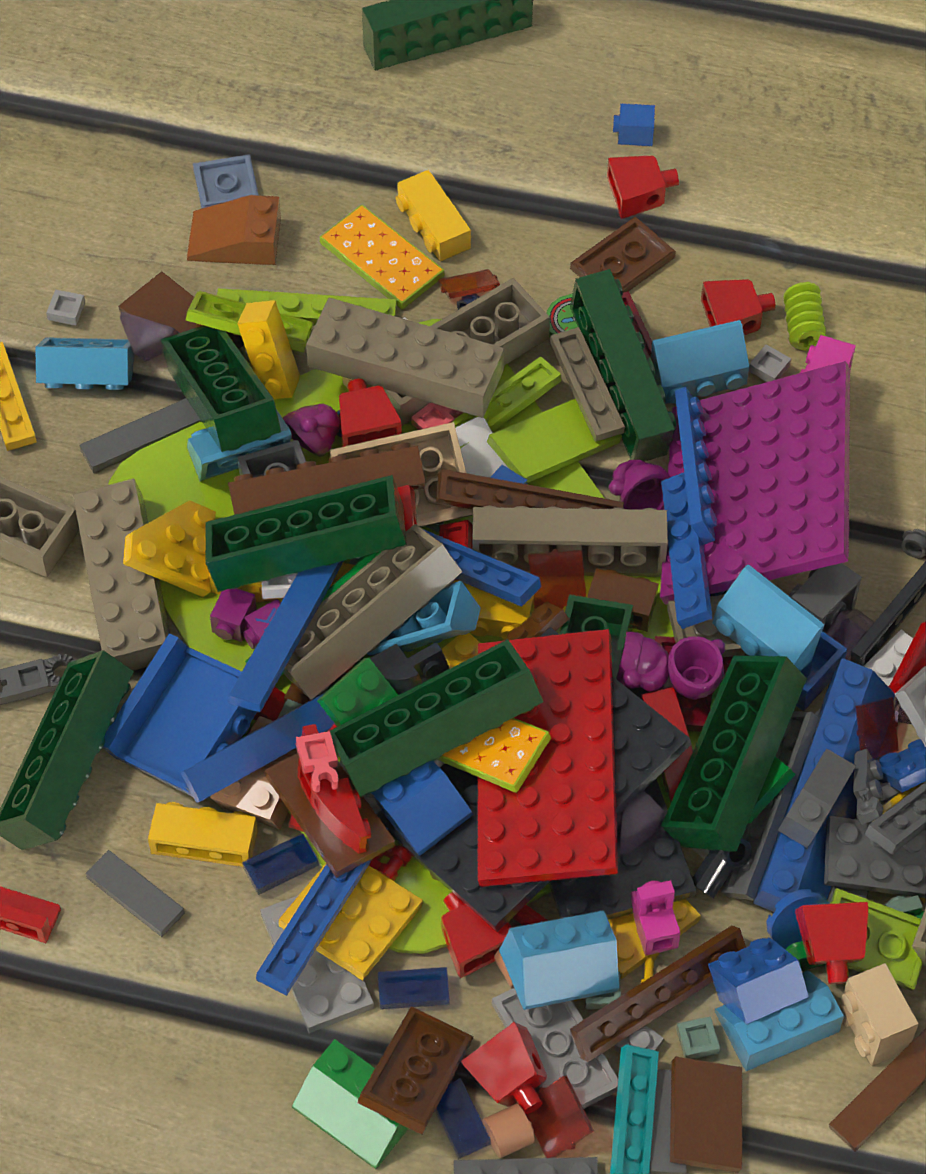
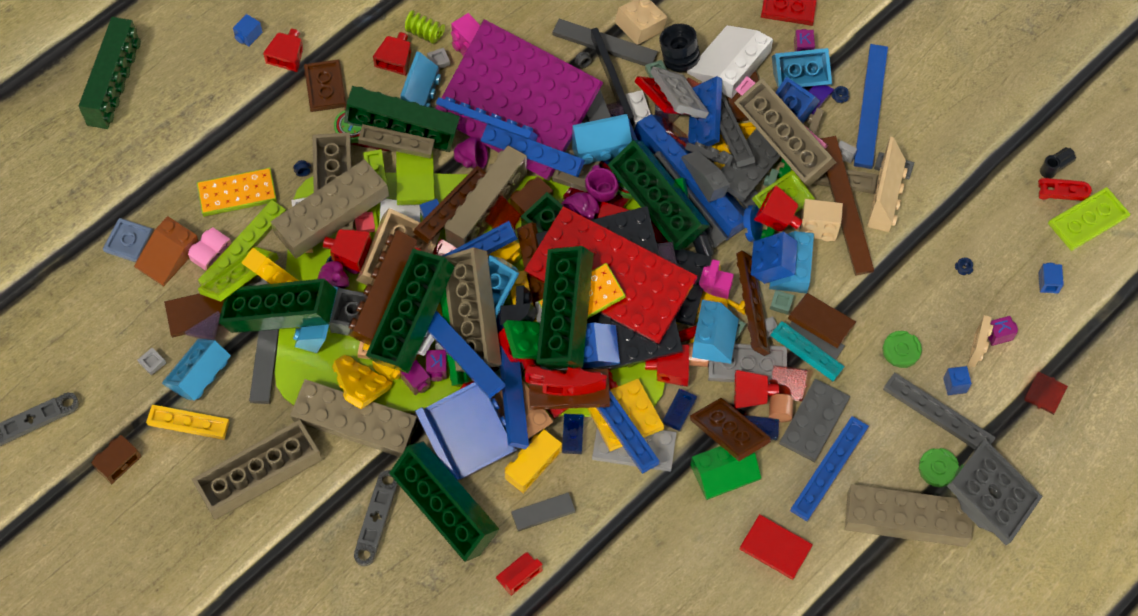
camera: 60 degrees left, 5 degrees up
(271, 272) = (209, 248): none -> bright pink brick
(318, 756) = (551, 372): coral plate -> none
(433, 215) = (232, 152): yellow brick -> none
(468, 283) = (289, 160): clear red piece -> none

